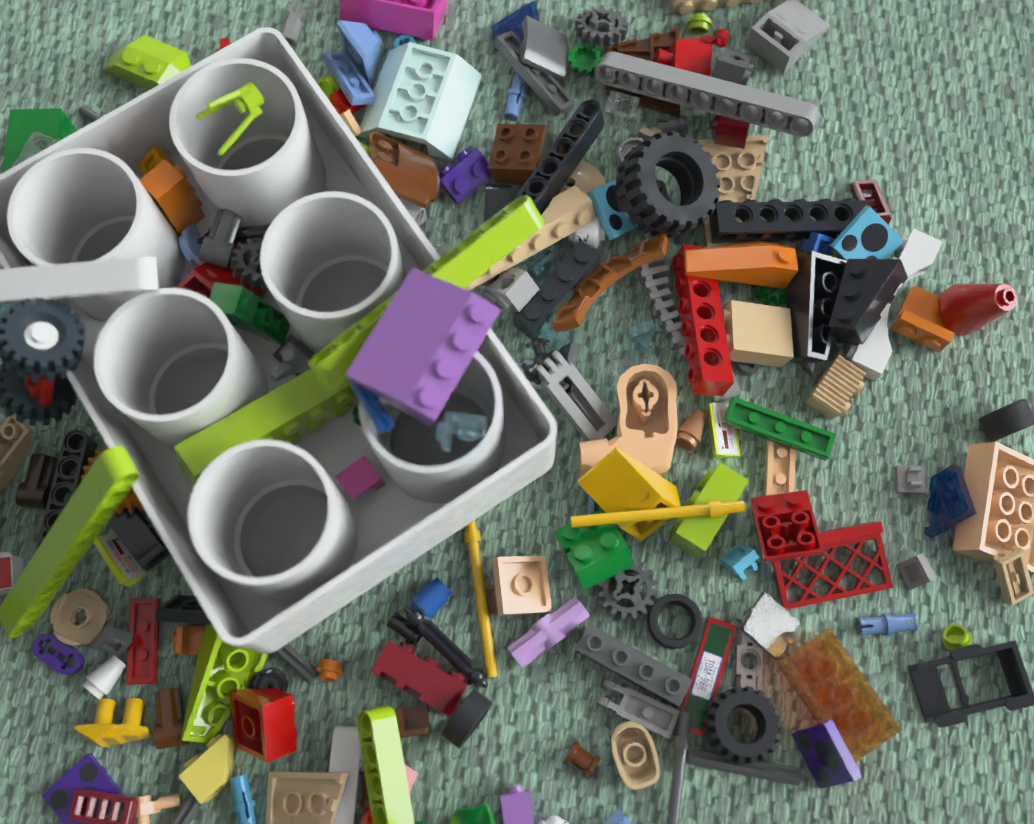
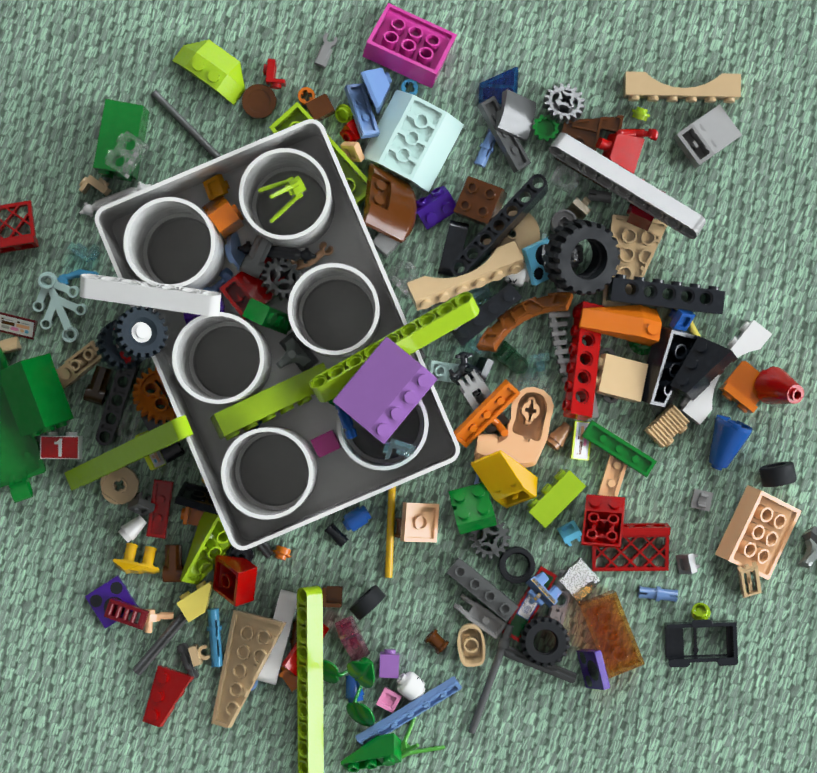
camera: 10 degrees right, 15 degrees up
(55, 660) = (99, 510): dark purple beam -> none
(420, 677) = (342, 570): dark red wedge -> none
(445, 646) = (361, 553): black wheel -> none
(453, 779) = (352, 638): none -> clear pink slope
(548, 632) = (431, 556): lavender piece -> none
(586, 408) = (487, 414): none -> orange plate
(598, 339) = (510, 357): none -> clear green piece
(713, 508) = (556, 502): yellow bar -> none
(720, 653) = (540, 593): none -> medium blue hips
(733, 66) = (654, 163): dark grey brick -> none
(867, 238) = (717, 323): medium azure tile -> none
(879, 201) = (730, 305): slope -> none
(924, 390) = (727, 441): none -> blue cone
(948, 501) = (721, 520): clear blue wing -> none

